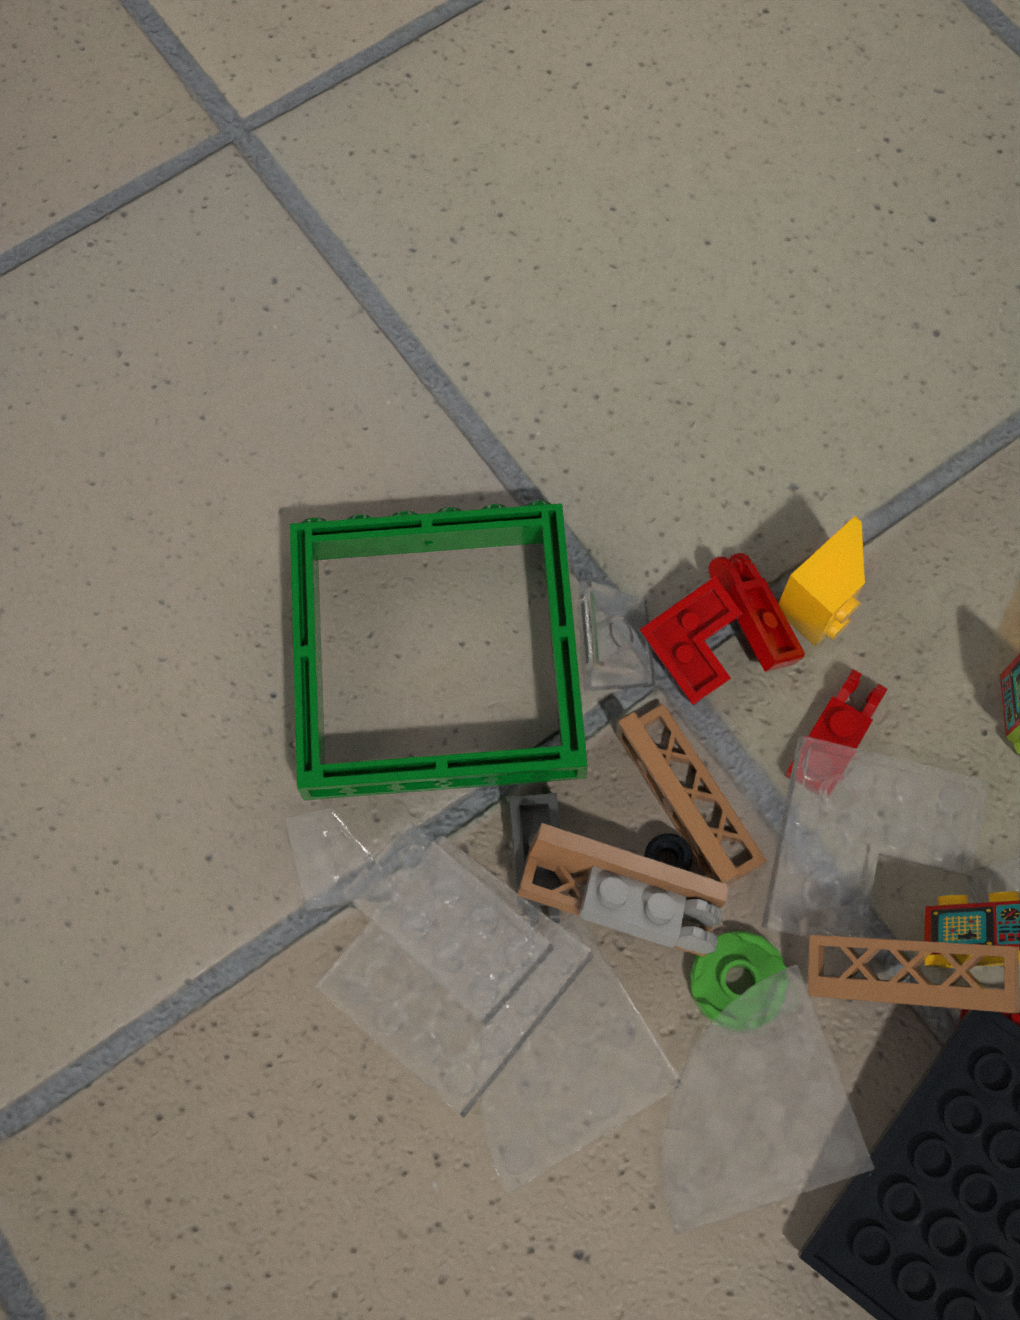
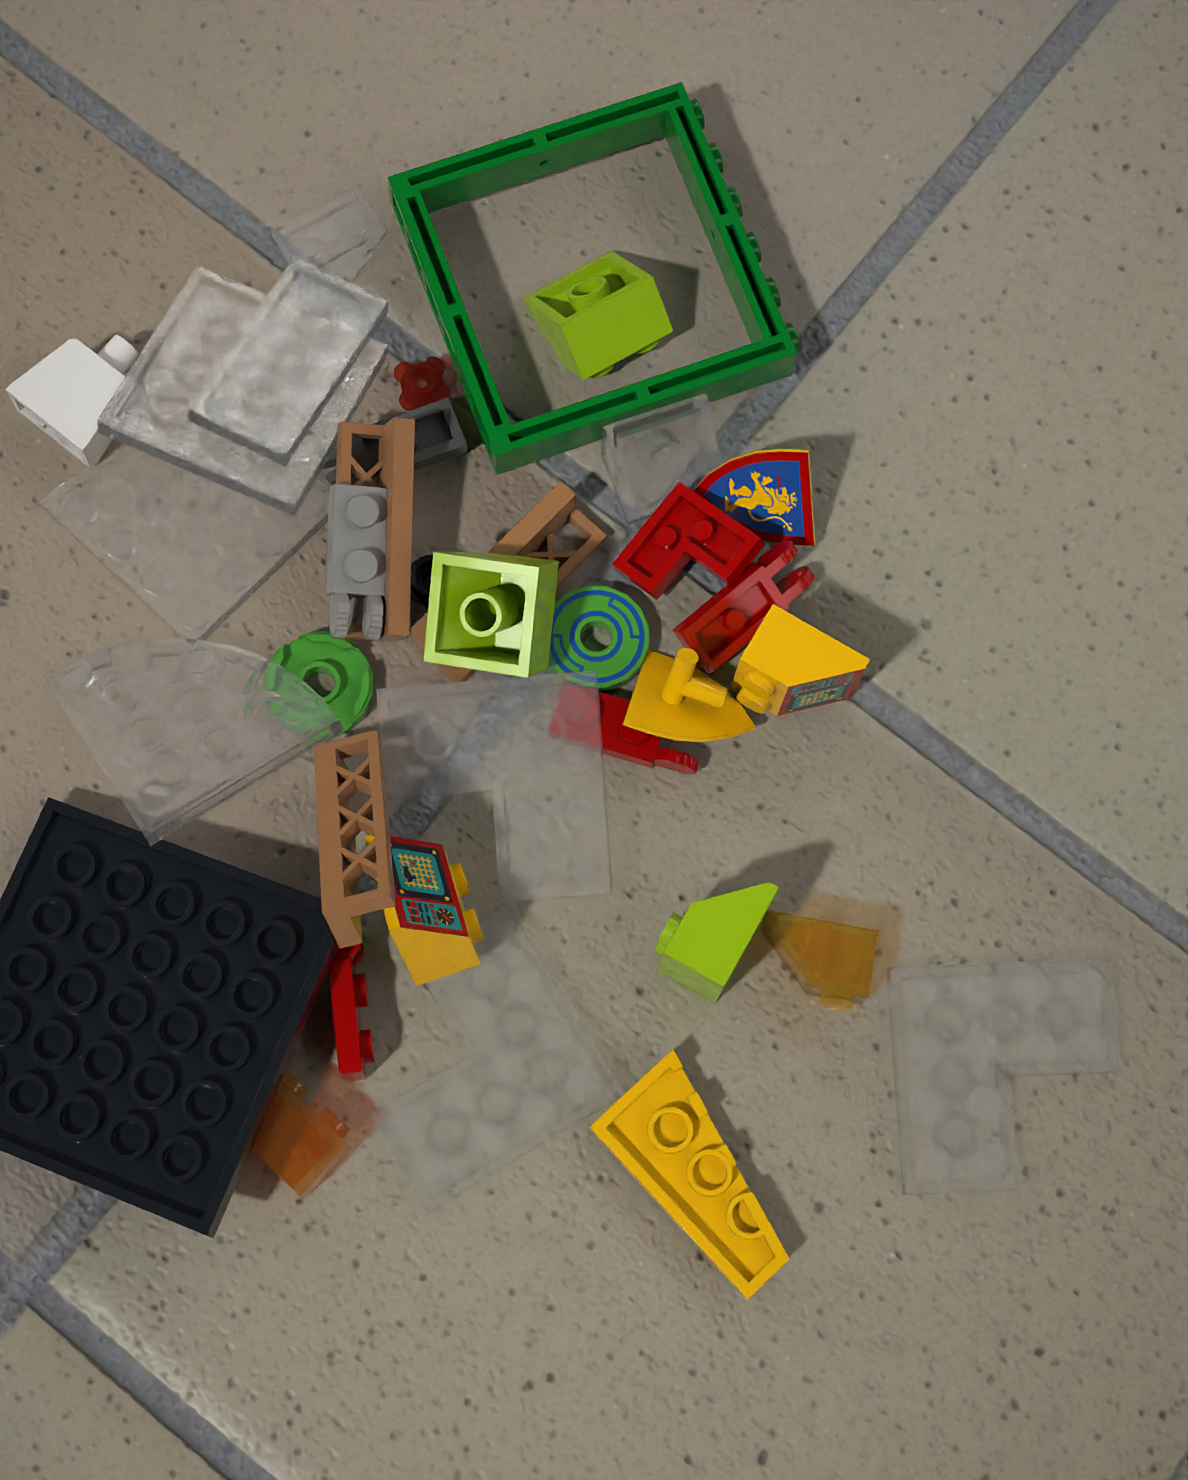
camera: 65 degrees right, 5 degrees up
(409, 1130) = (70, 391): none -> white torso
(465, 654) = (600, 315): none -> lime slope
(490, 830) = (409, 375): none -> clear red plate
(667, 567) = (765, 494): none -> shield
(729, 807) = (491, 612): none -> lime slope
(754, 711) = (607, 610): none -> bright green tile
(828, 682) = (683, 702): none -> yellow shield

